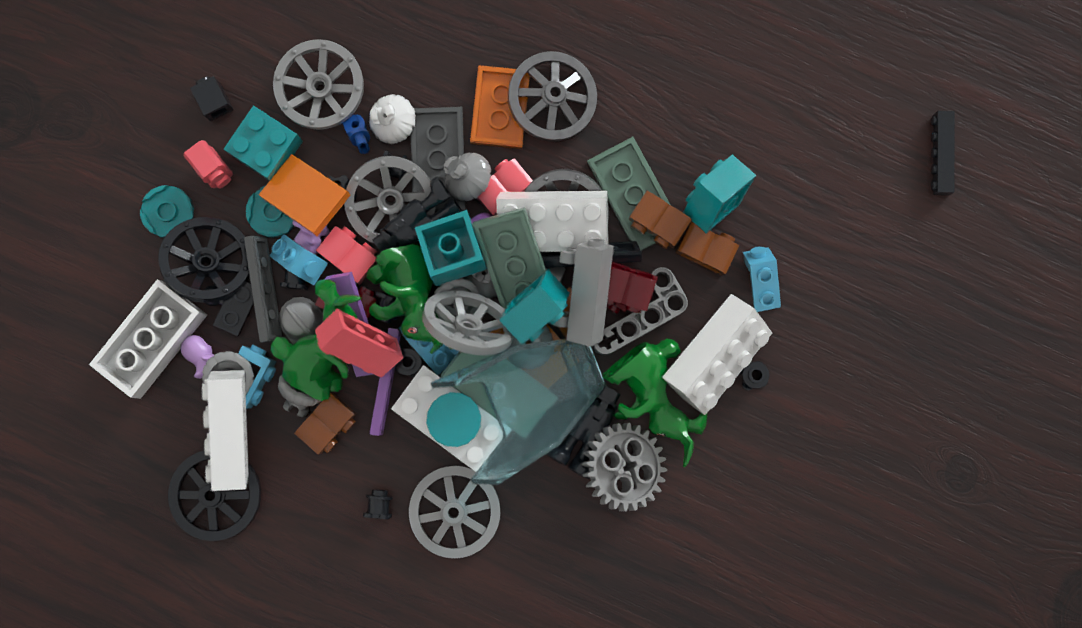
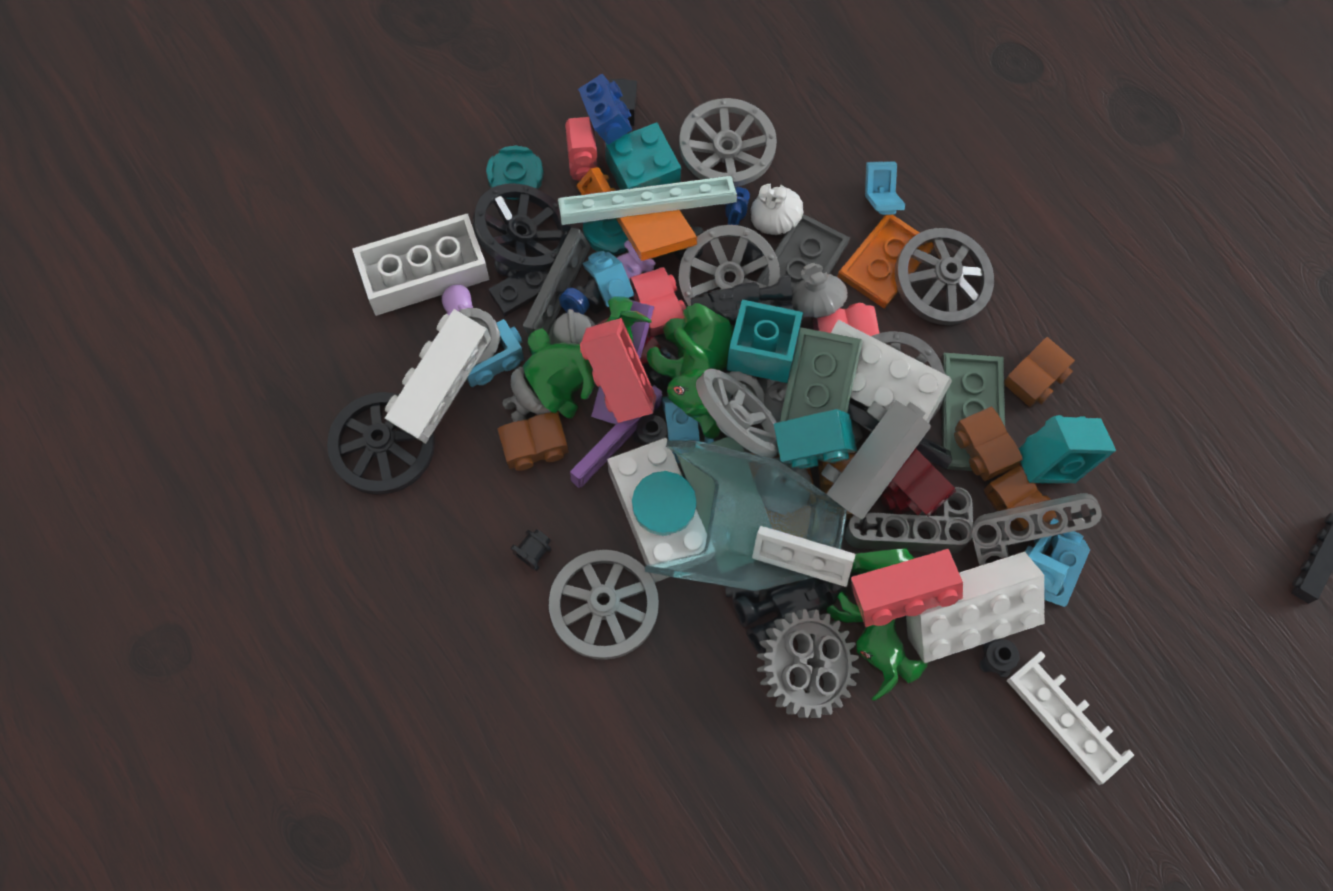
camera: 25 degrees right, 15 degrees down
(207, 124) = (605, 109): none -> blue brick
(239, 188) = (594, 182): none -> orange tile
(285, 295) = (575, 300): none -> blue tile
(288, 179) = (647, 200): none -> light aqua tile
(463, 51) = (881, 187): none -> medium azure bracket
(576, 396) = (803, 556): none -> white plate
(664, 381) = (907, 588): none -> coral brick
(666, 133) = (1038, 372): none -> dark orange brick
(730, 268) = (1037, 526): none -> light grey beam
(755, 296) = (1053, 570): none -> medium azure bracket
(824, 391) = (1068, 721): none -> white hinge

